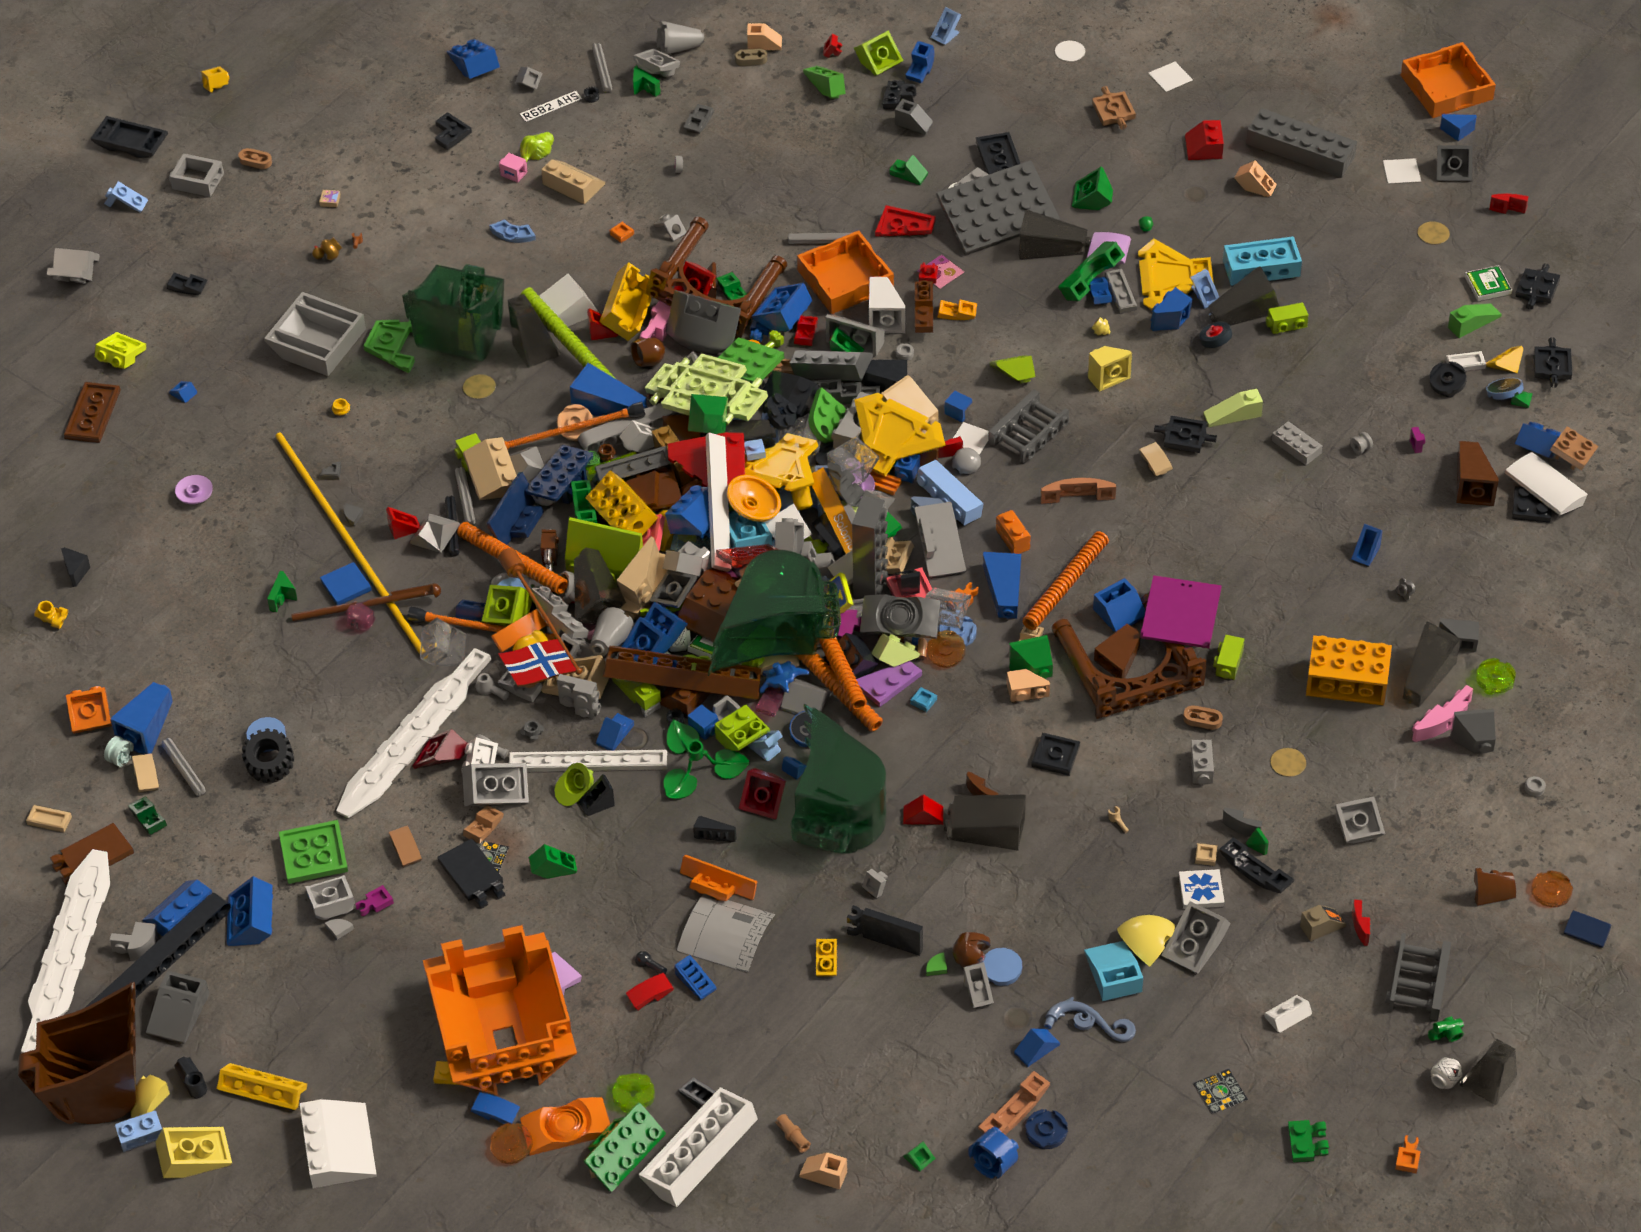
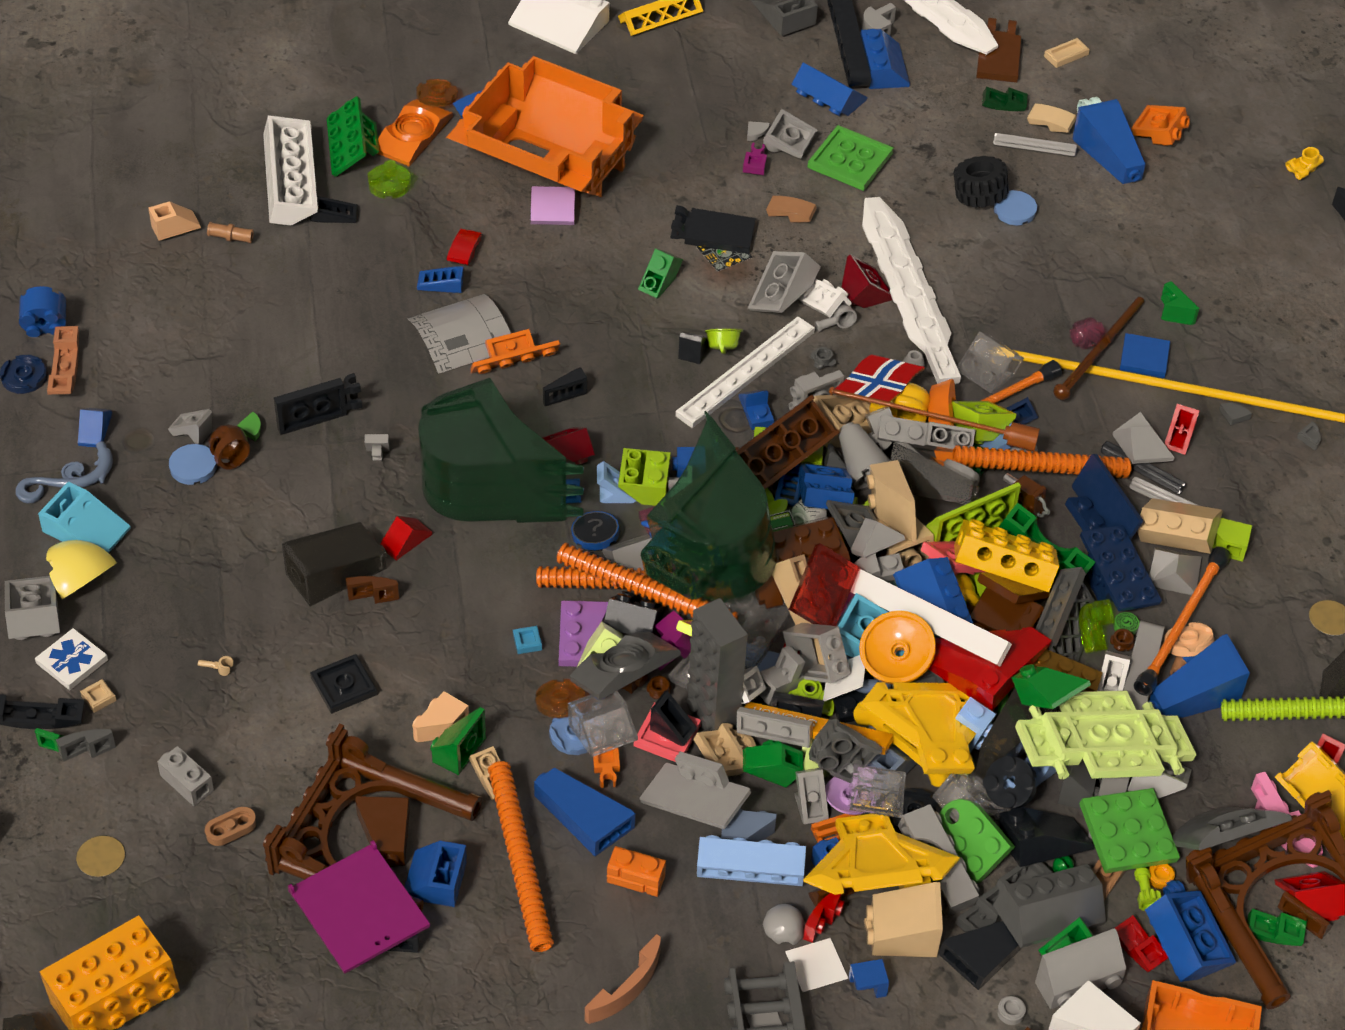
camera: 130 degrees right, 0 degrees up
(484, 824) = (754, 263): medium nougat slope -> none
(644, 959) = (501, 268): black bar -> none
(652, 351) = (1236, 766): reddish brown helmet -> none
(684, 738) = (649, 410): green plant -> none
(826, 957) = (348, 362): yellow slope -> none
(919, 1156) = (110, 284): green slope -> none
(1230, 656) = (264, 913): lime brick -> none

